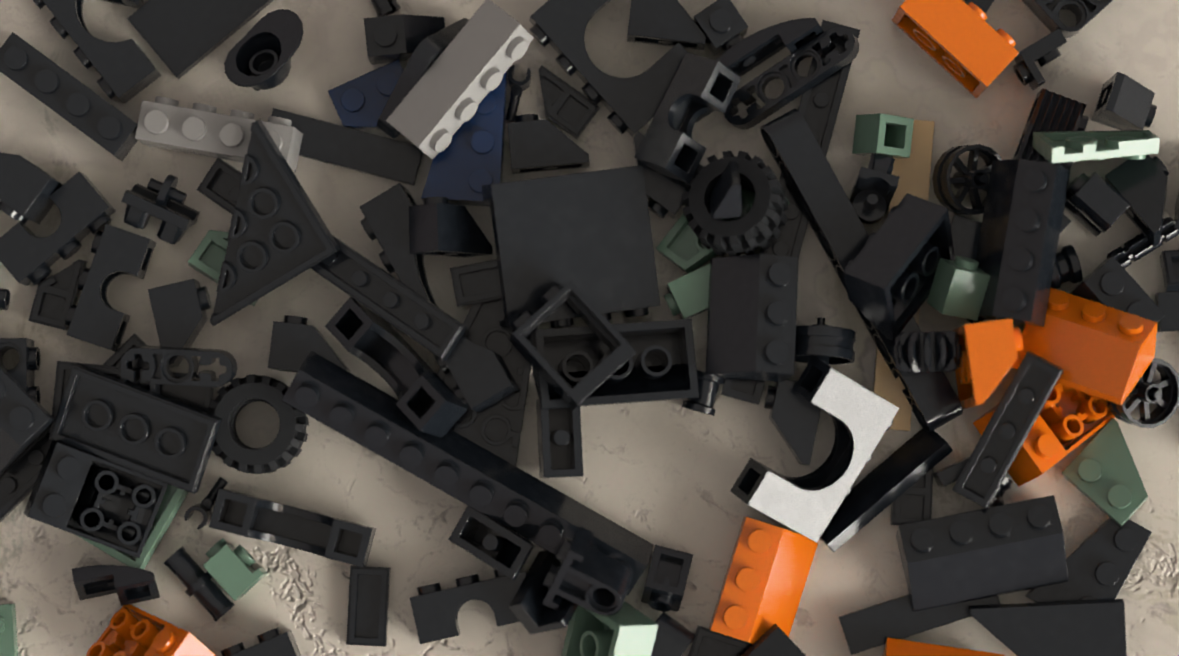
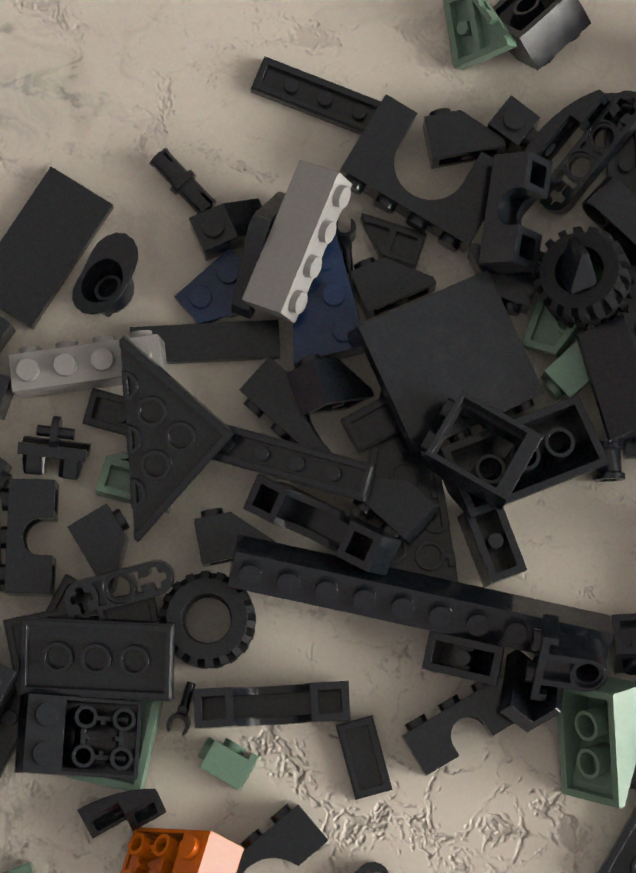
camera: 20 degrees left, 5 degrees down
(198, 583) = (199, 787): black pin -> none

